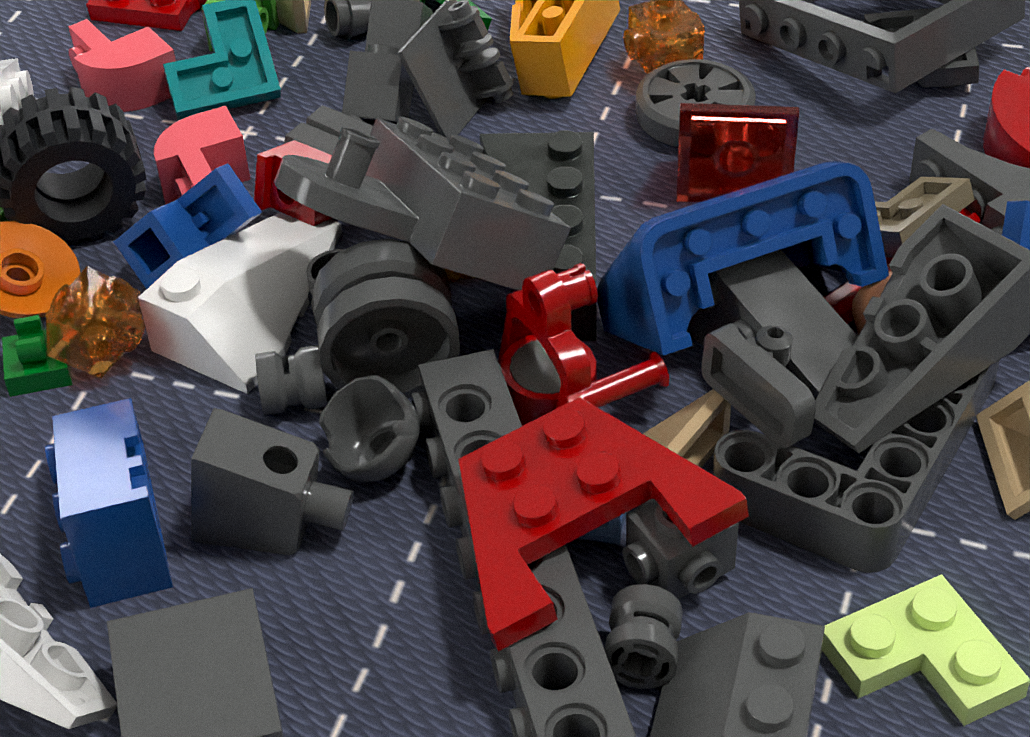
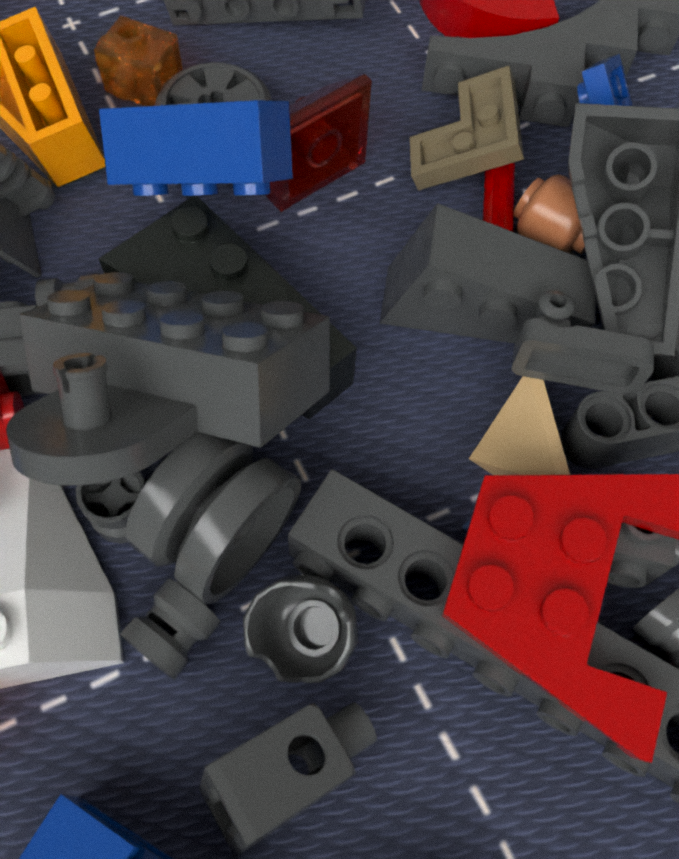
camera: 50 degrees left, 20 degrees up
(547, 361) = (384, 442): red piece -> none
(615, 92) = (198, 146): none -> blue wedge
(812, 215) = (418, 270): blue windscreen -> none

